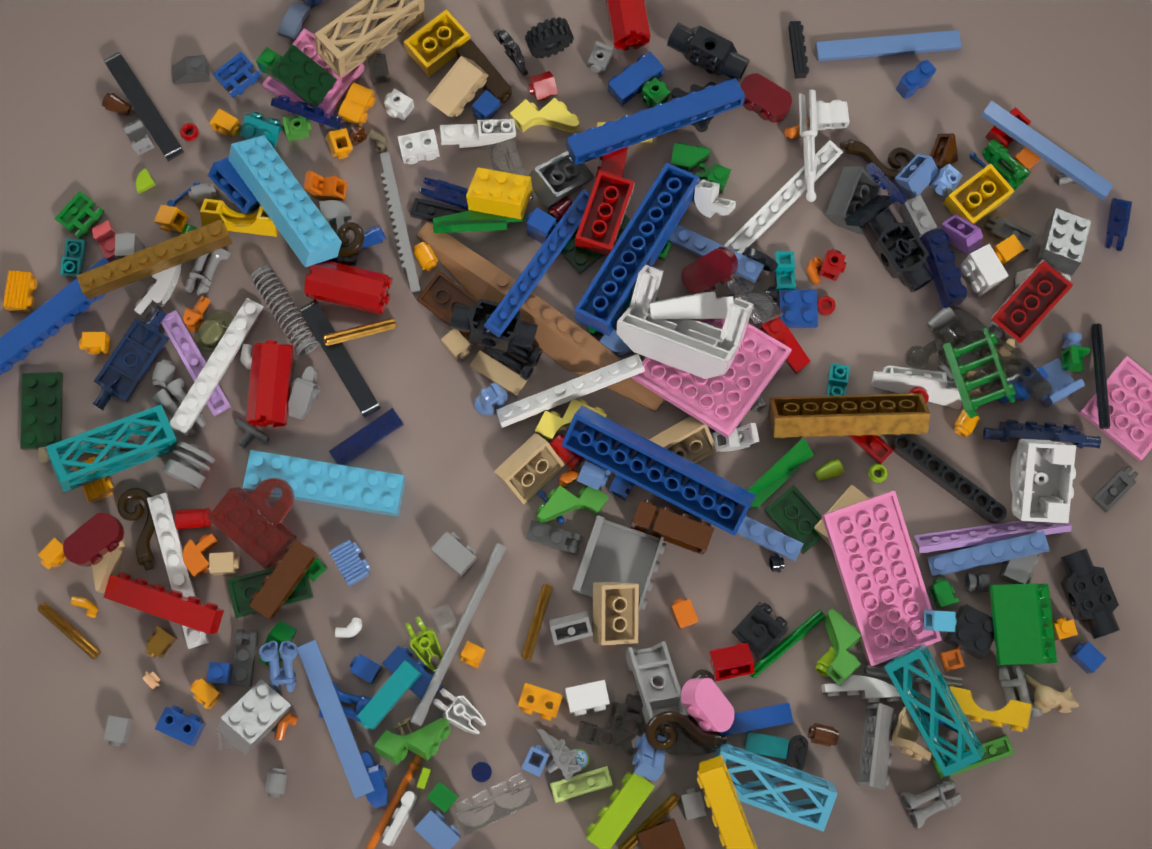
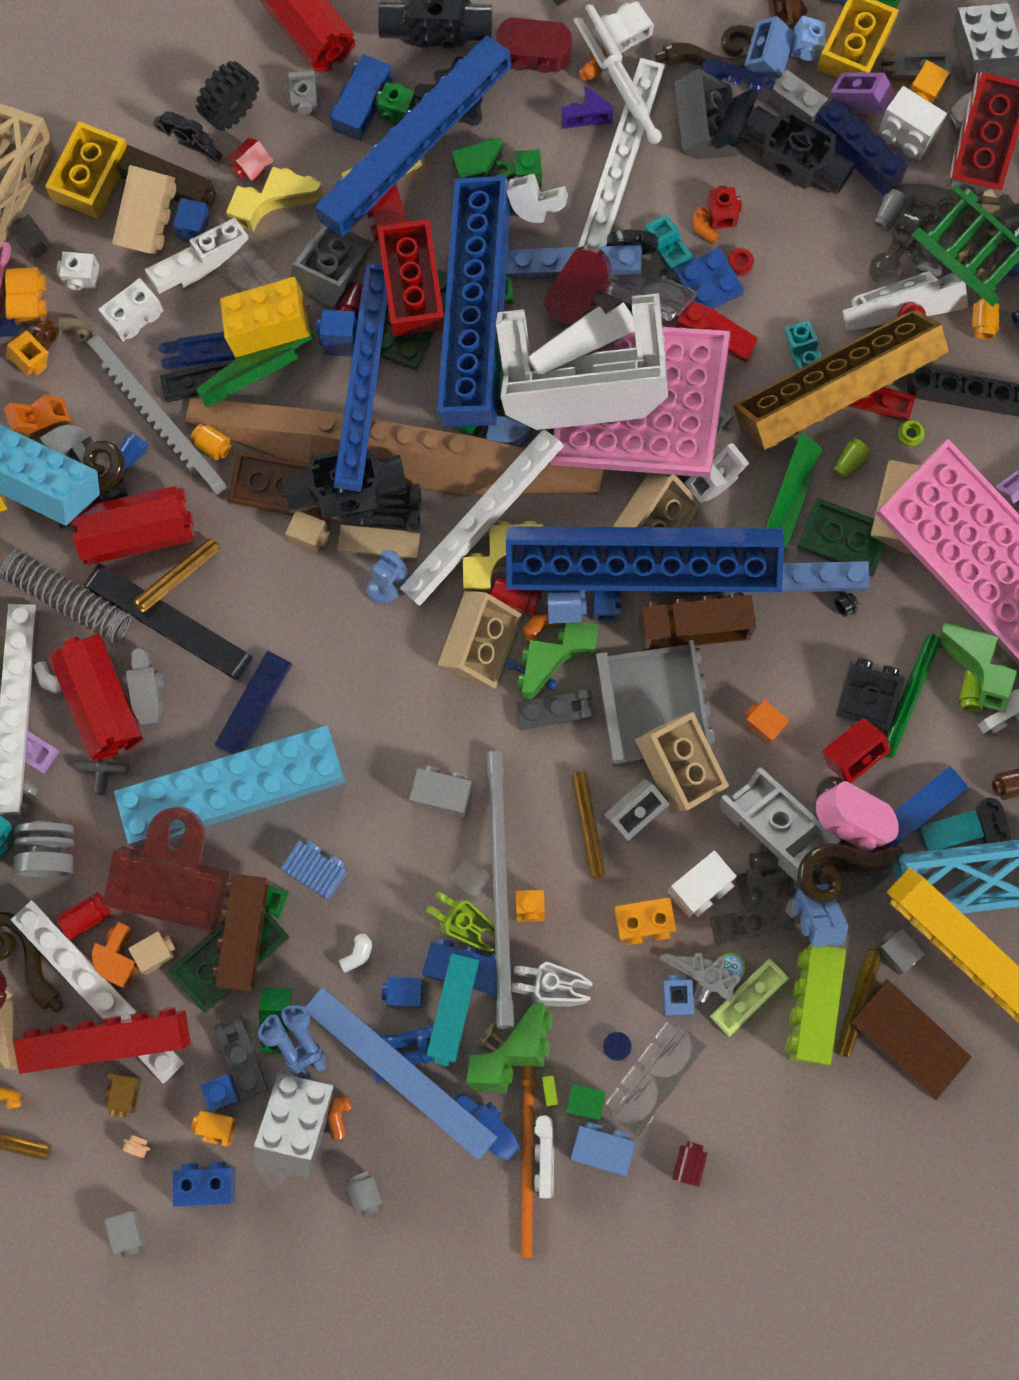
camera: 20 degrees left, 0 degrees up
(779, 161) = (593, 111): none -> dark purple slope

